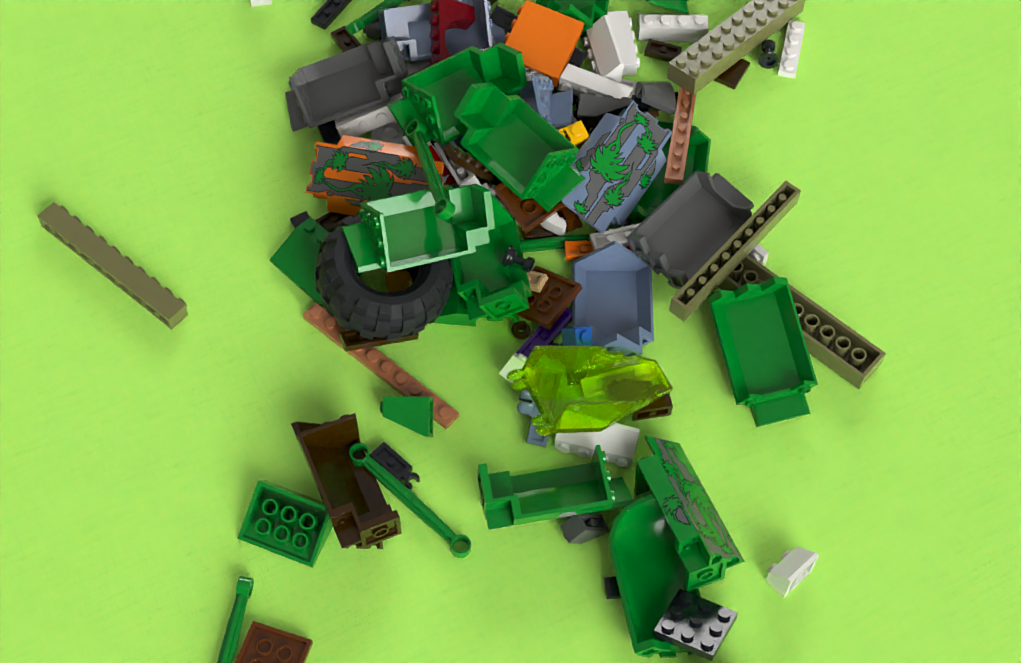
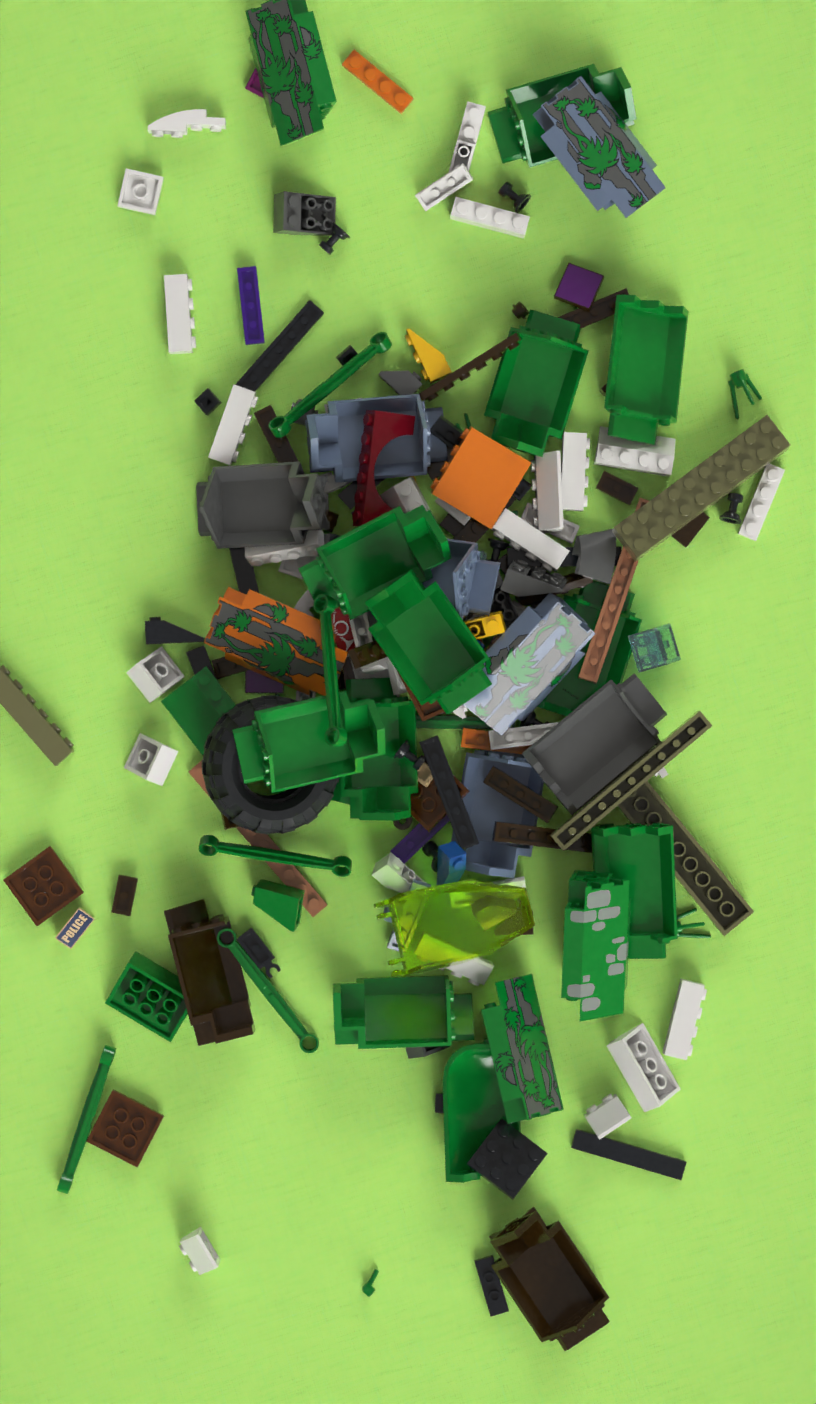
camera: 10 degrees right, 30 degrees up
(164, 434) = (43, 886): none -> reddish brown plate
(199, 469) = (75, 928): none -> dark blue slope
(249, 431) = (124, 895): none -> dark brown plate
(260, 237) = (155, 674): none -> white slope
(265, 307) = (151, 759): none -> white slope
(272, 203) = (164, 632): none -> black slope
(288, 31) = (208, 401): none -> black tile
(313, 37) = (232, 424): none -> white brick
(399, 370) = (276, 856): none -> green piece
(563, 287) = (449, 792): none -> black tile
(632, 286) = (520, 794): none -> dark brown plate
(662, 319) = (536, 836): none -> dark brown plate
(728, 156) = (654, 647): none -> clear light blue slope
(739, 393) = (596, 943): none -> green panel
(815, 521) = (643, 1068): none -> white slope
(822, 376) = (689, 935): none -> green plant
(823, 611) = (628, 1154): none -> black tile
(844, 469) = (683, 1019): none -> white brick

